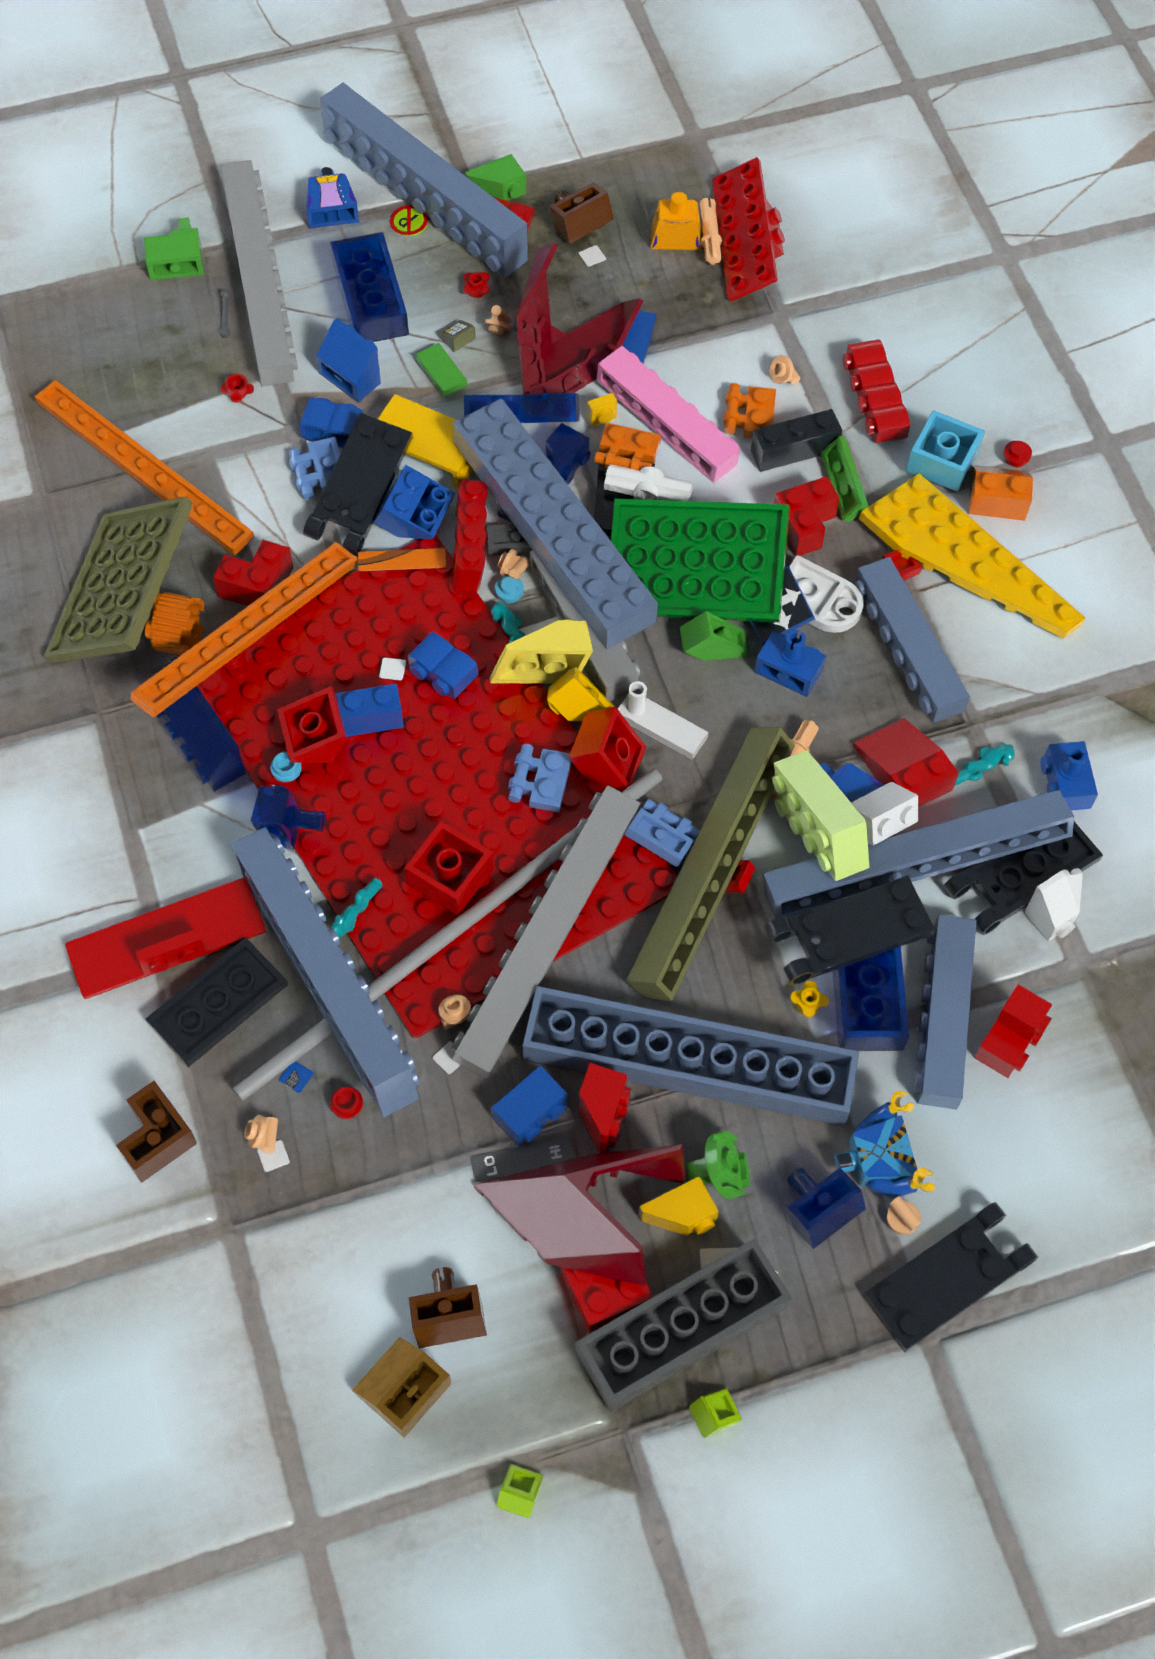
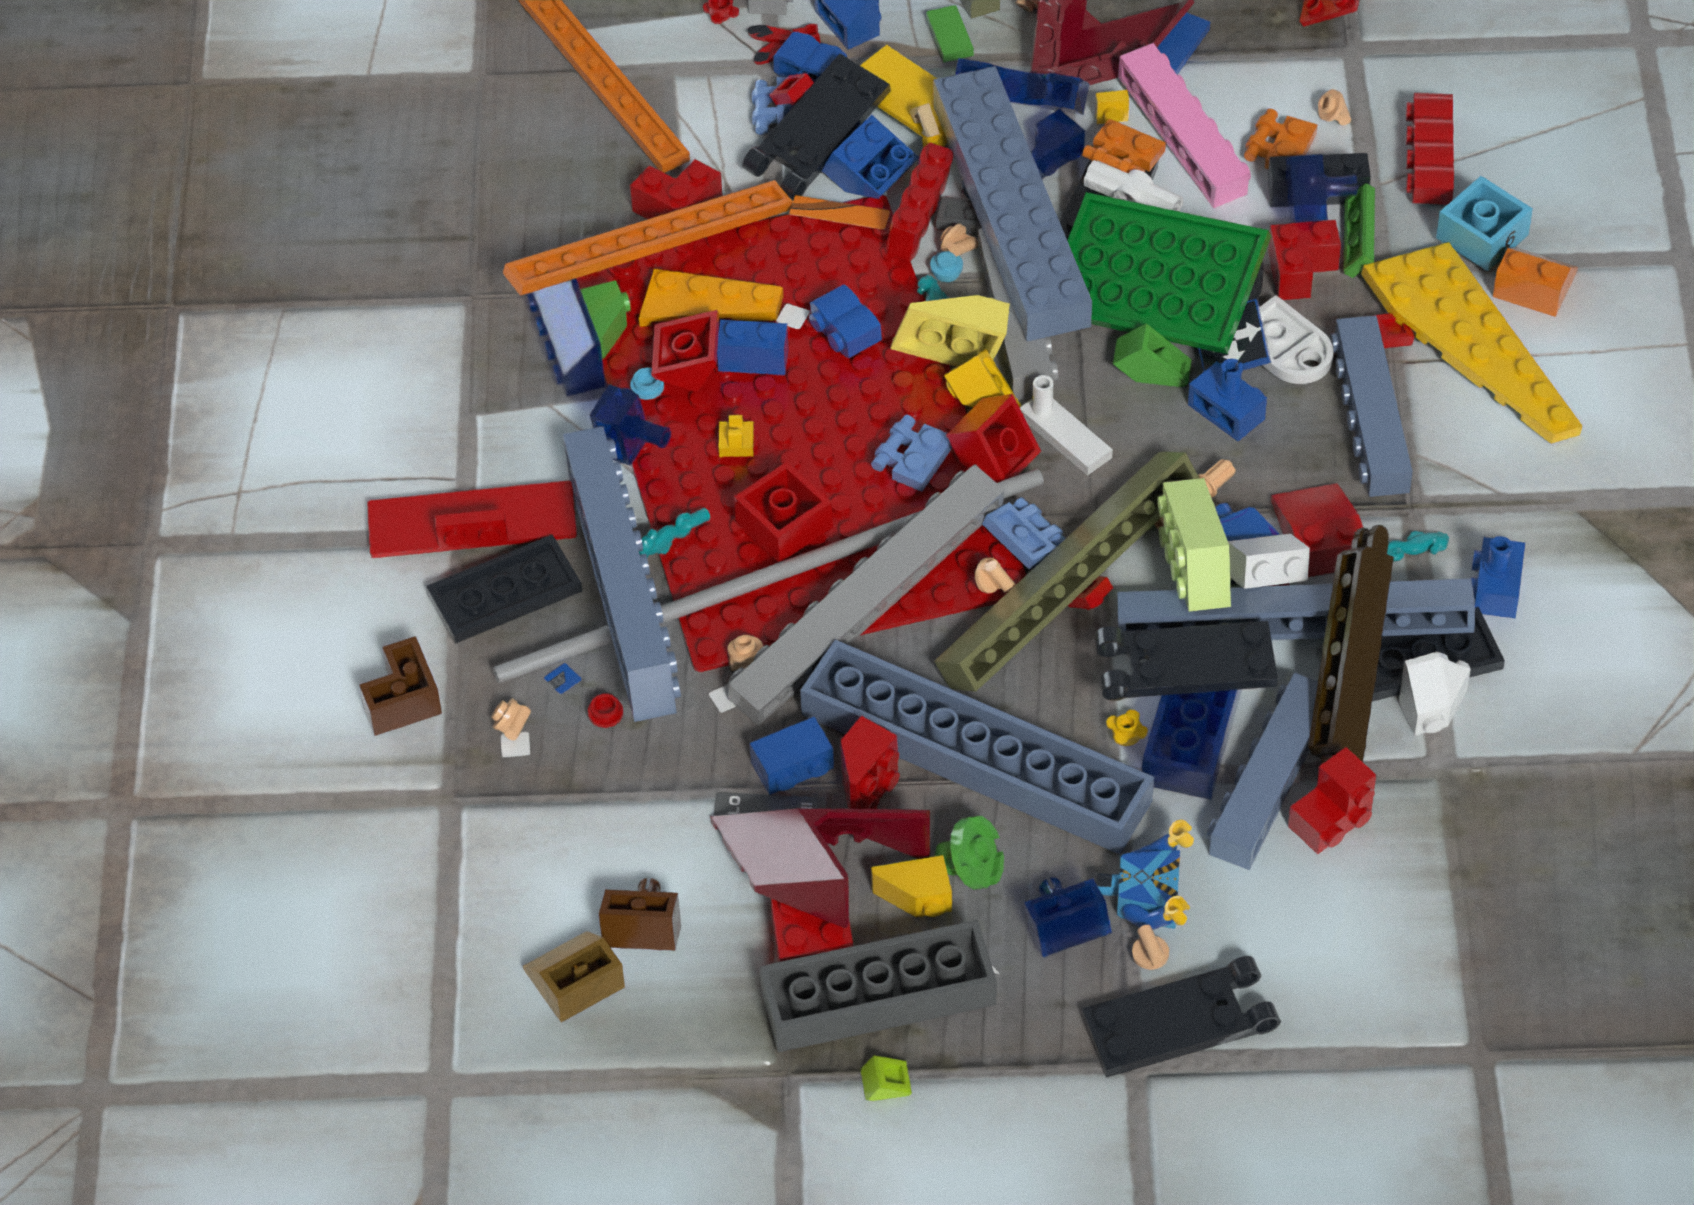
camera: 20 degrees right, 10 degrees down
(119, 581) = (531, 167): olive plate -> none
(175, 623) = (575, 217): orange brick -> none
(229, 704) = (608, 312): none -> bright green slope
(297, 406) = (777, 37): none -> red piece
(302, 671) = (681, 295): none -> light orange wing
(326, 453) = (791, 89): none -> red plate
(381, 800) = (736, 437): none -> yellow tile
(452, 455) = (924, 115): none -> tan tile
(519, 1491) = (660, 1098): lime slope -> none
(647, 883) = (991, 576): none -> light nougat plate
(799, 453) = (1310, 188): none -> clear blue brick
(988, 888) = (1352, 645): none -> dark brown hinge
(1017, 453) = (1571, 245): red plate -> none

